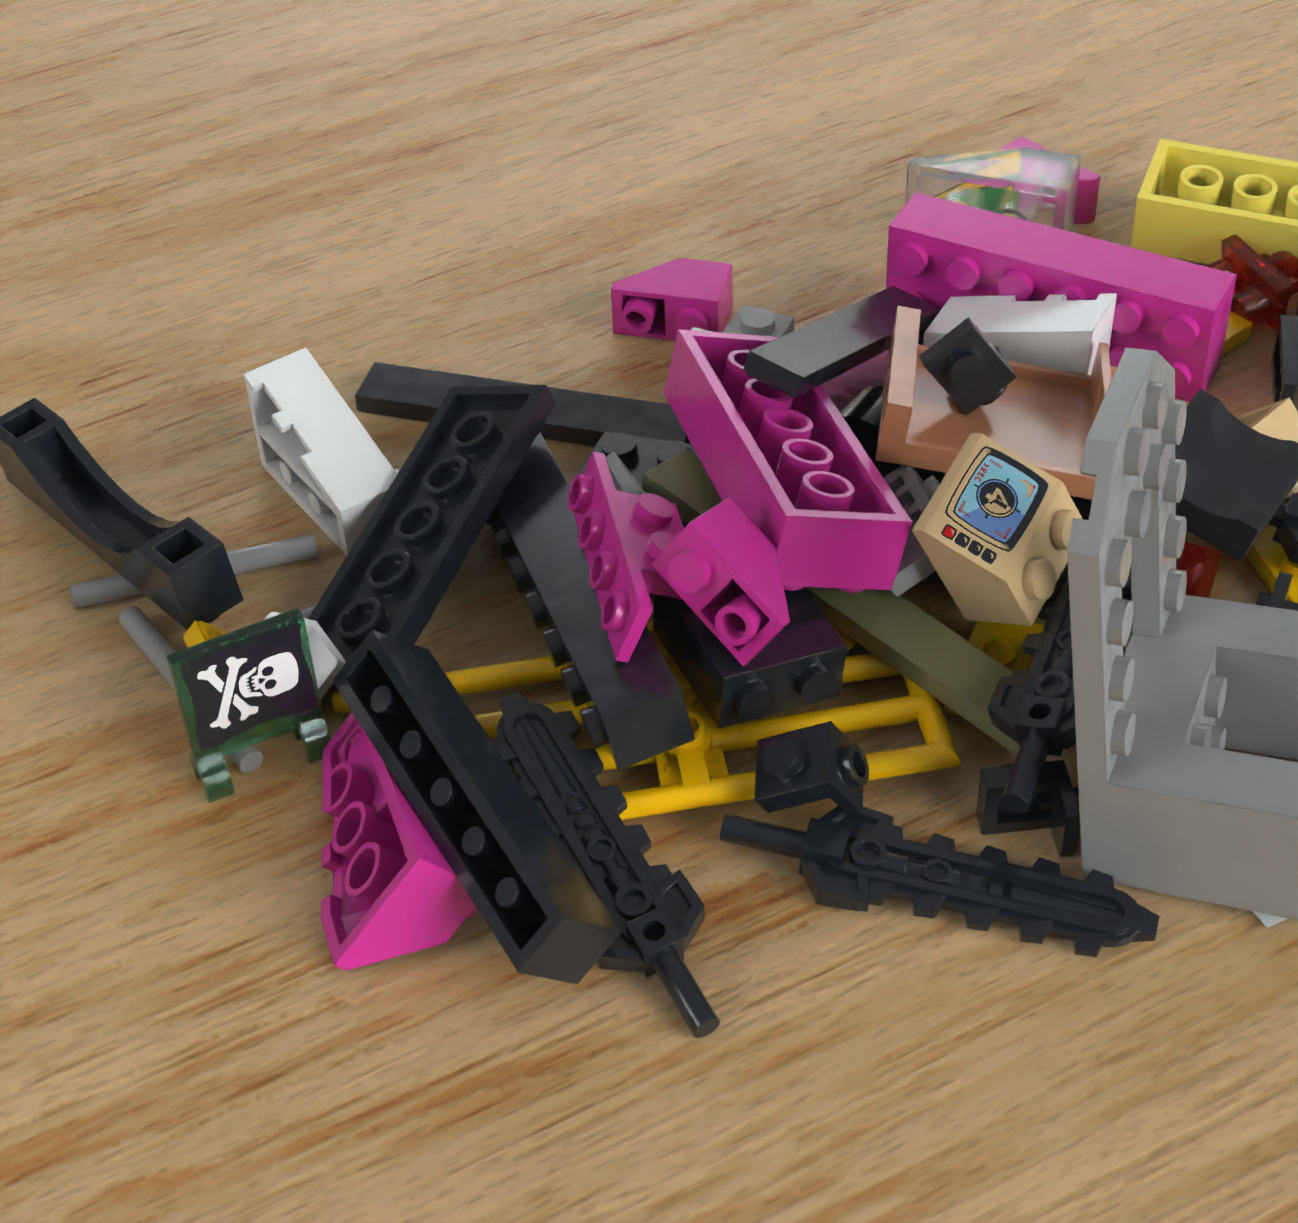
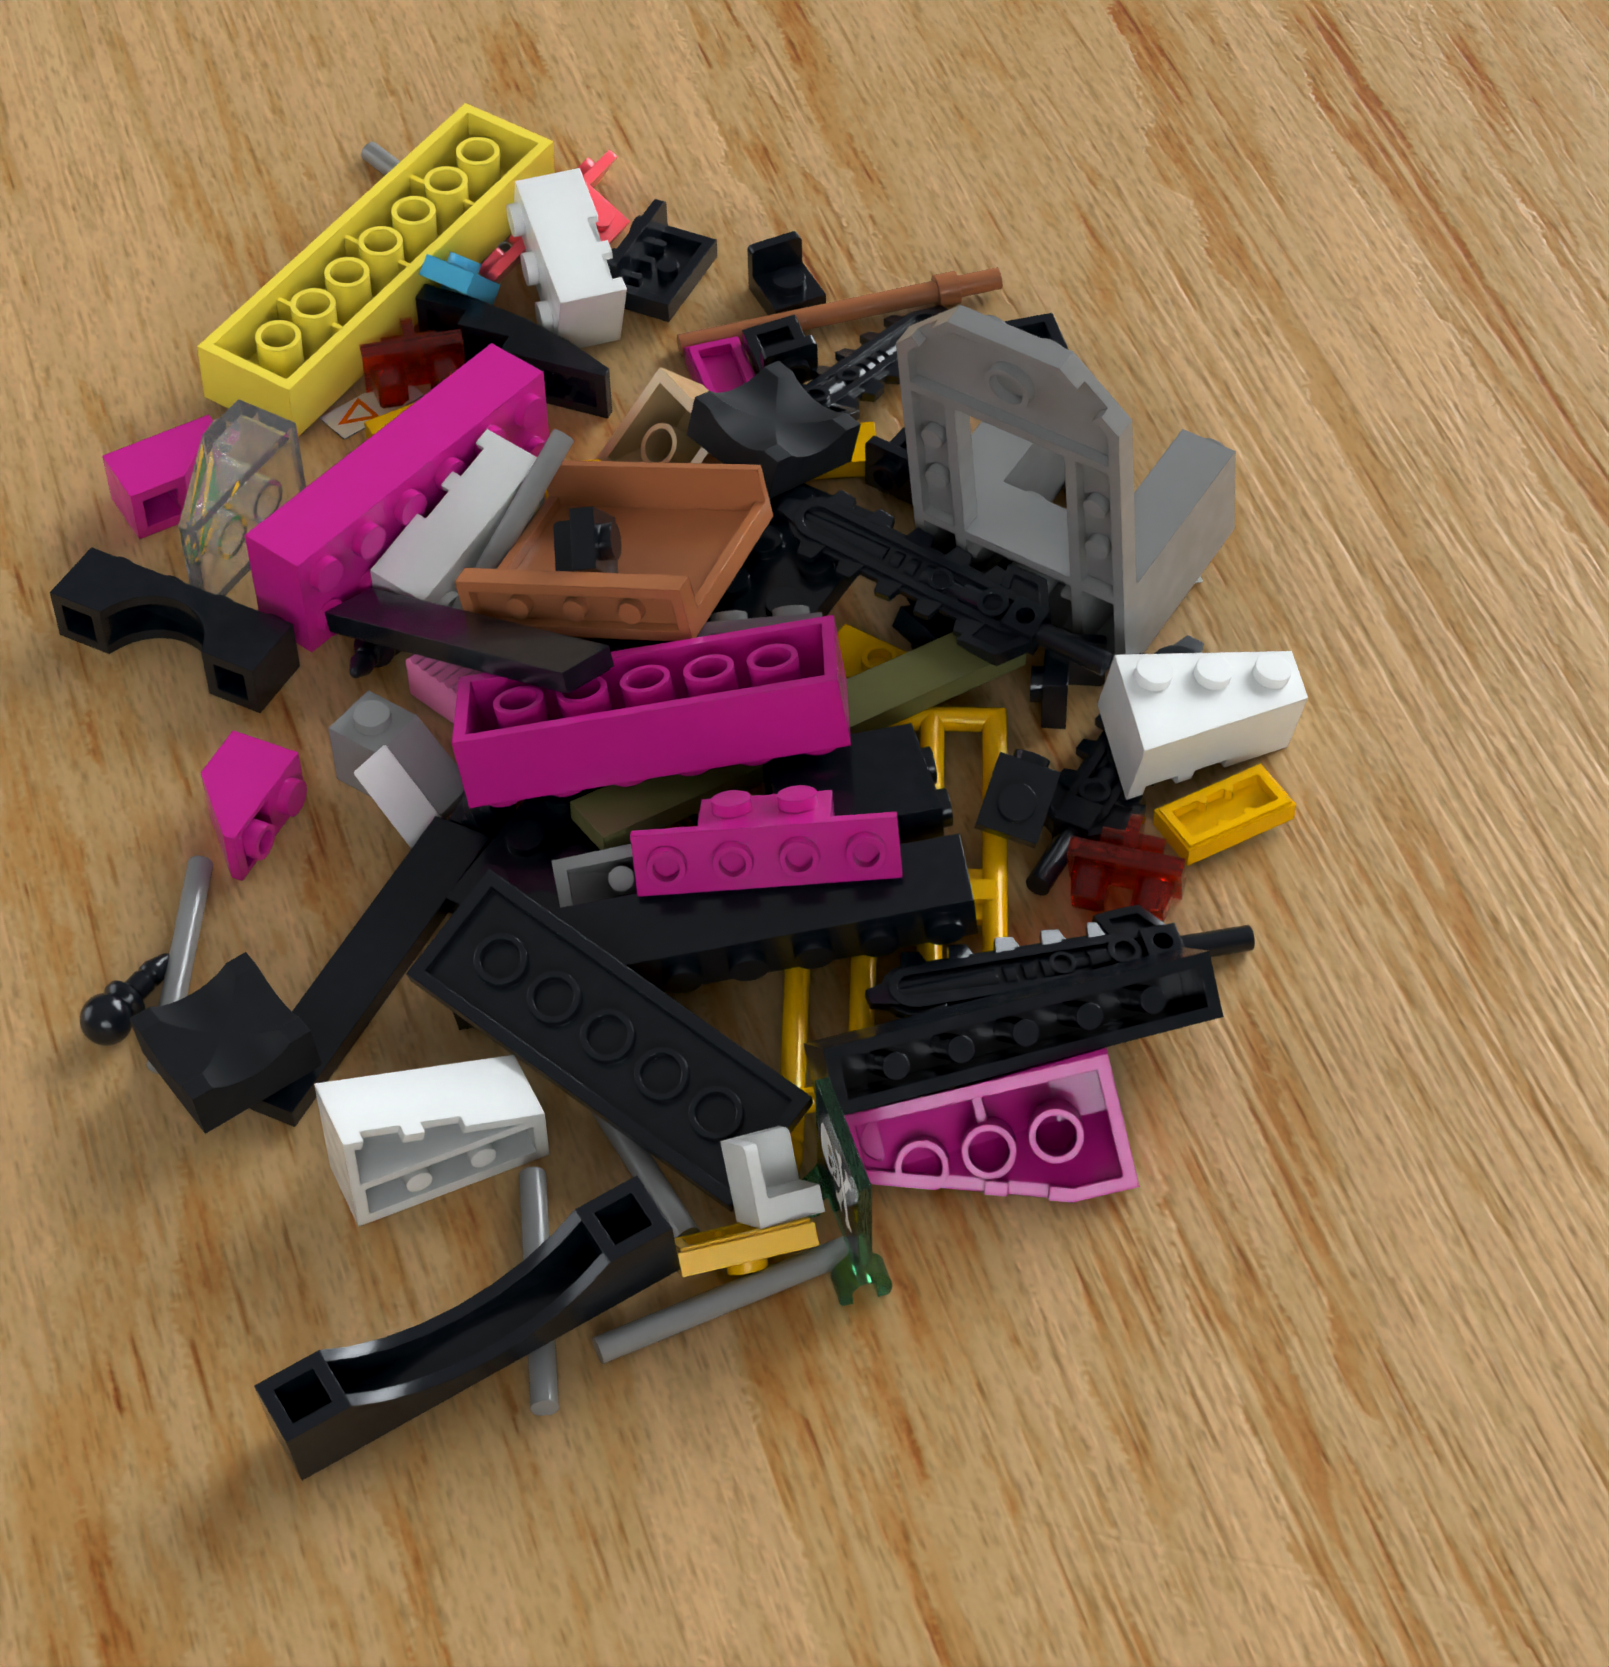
camera: 80 degrees left, 5 degrees up
(396, 332) = (226, 1044): none -> black brick
(440, 287) = (107, 1014): none -> black bar
(507, 315) = (186, 932): none -> light grey bar
(728, 578) = (862, 755): dark pink slope -> none
(767, 890) = (1125, 861): none -> clear red hips
(852, 259) = (117, 602): none -> black arch
(877, 977) = (1224, 814): none -> yellow plate
(994, 910) = (1197, 710): none -> white wedge
(997, 533) = (823, 569): tan slope -> none
(1062, 340) = (524, 502): none -> light grey bar

